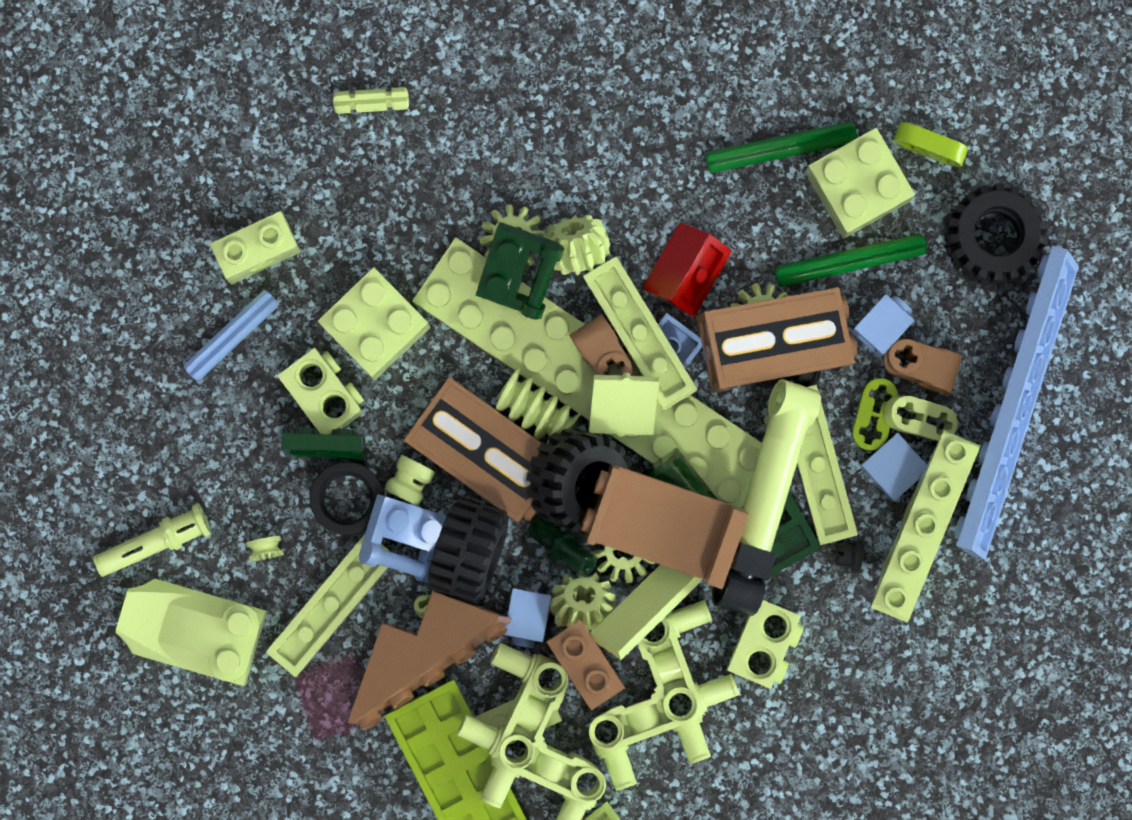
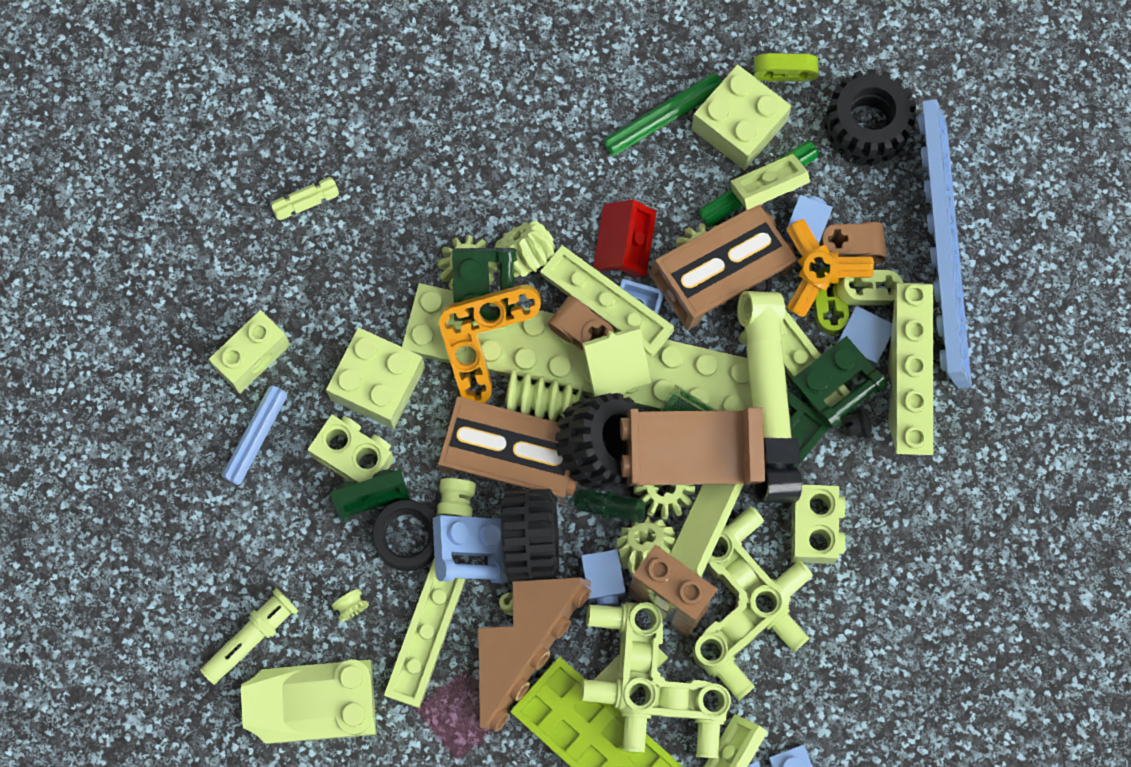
camera: 25 degrees left, 10 degrees down
(484, 318) = (468, 333): none -> light orange beam
(841, 495) = (832, 372): none -> dark green plate
(860, 268) = (770, 181): none -> yellowish green plate
(860, 388) = (839, 267): none -> light orange bush

